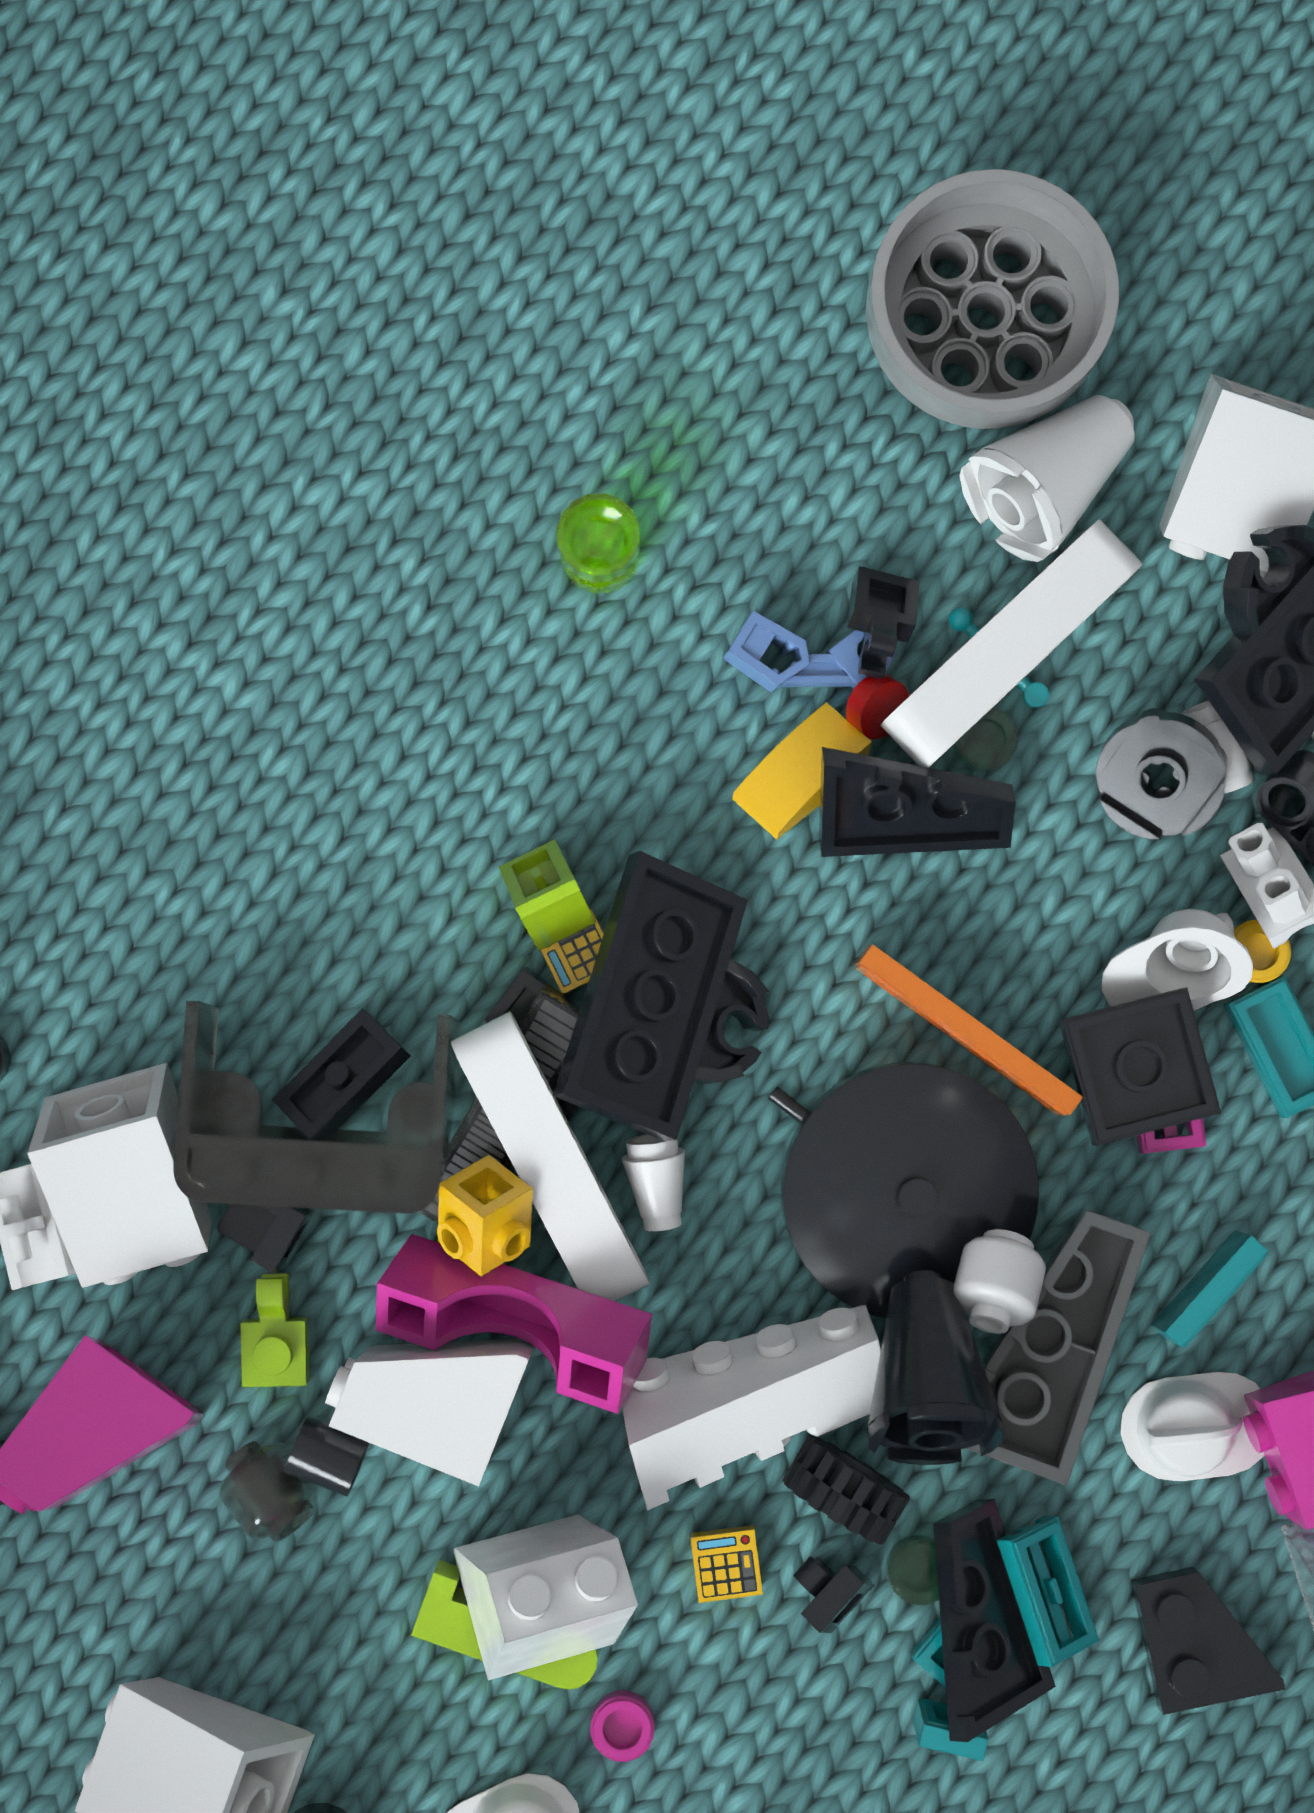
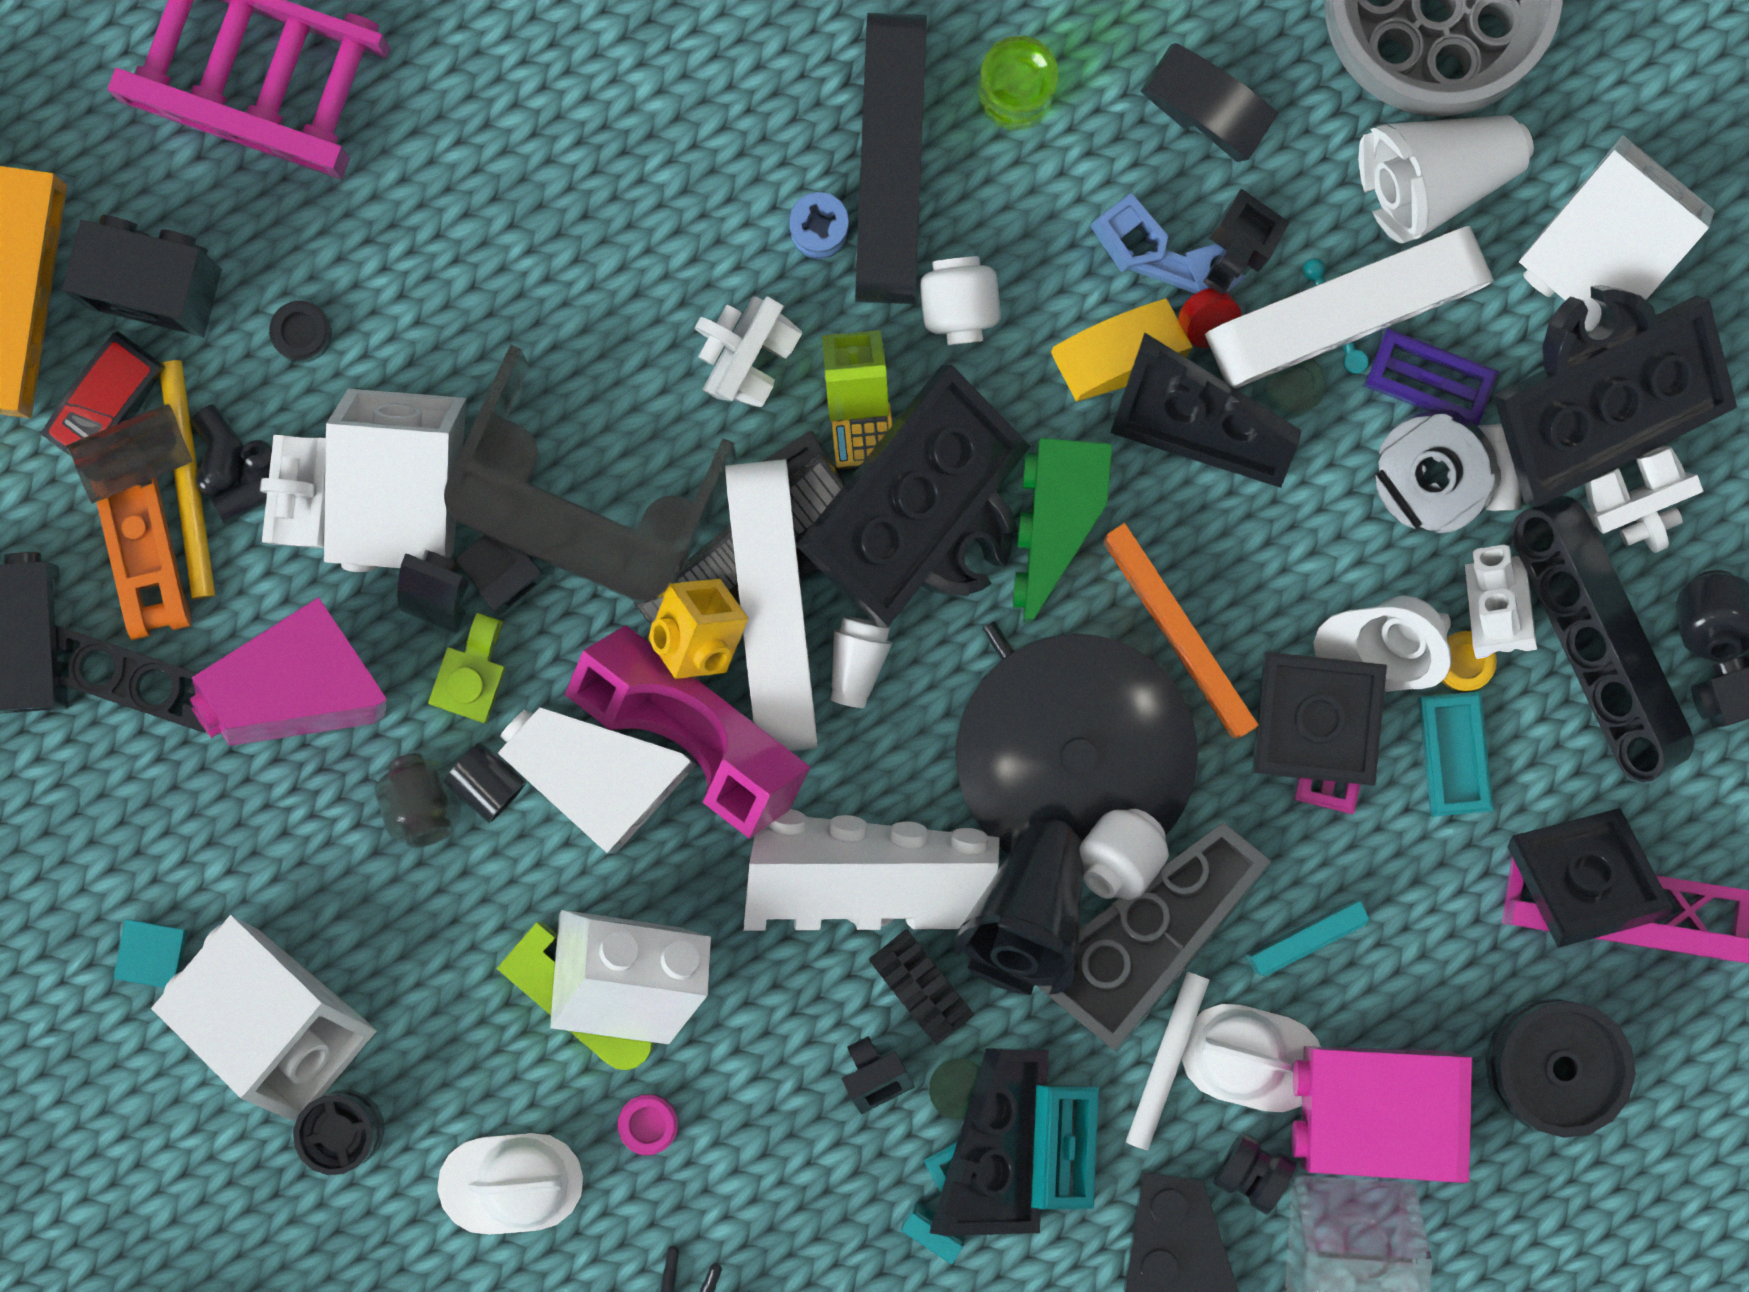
camera: 25 degrees right, 0 degrees up
(55, 1745) = (150, 953): none -> teal tile
(201, 1274) = (432, 590): none -> black slope
(341, 1077) = (616, 465): black plate -> none
(431, 884) = (758, 328): none -> white hips
(461, 768) = (823, 236): none -> medium blue wheel
(501, 665) = (890, 158): none -> black beam
(623, 781) = (960, 299): none -> white head
(726, 1563) = (791, 1018): yellow tile -> none
(795, 489) = (1211, 100): none -> black slope
(806, 947) = (1068, 498): none -> green slope
(1115, 708) = (1383, 361): none -> dark purple tile
(1115, 1464) = (1167, 1061): none -> white bar
(1247, 1545) = (1255, 1173): none -> black wheel

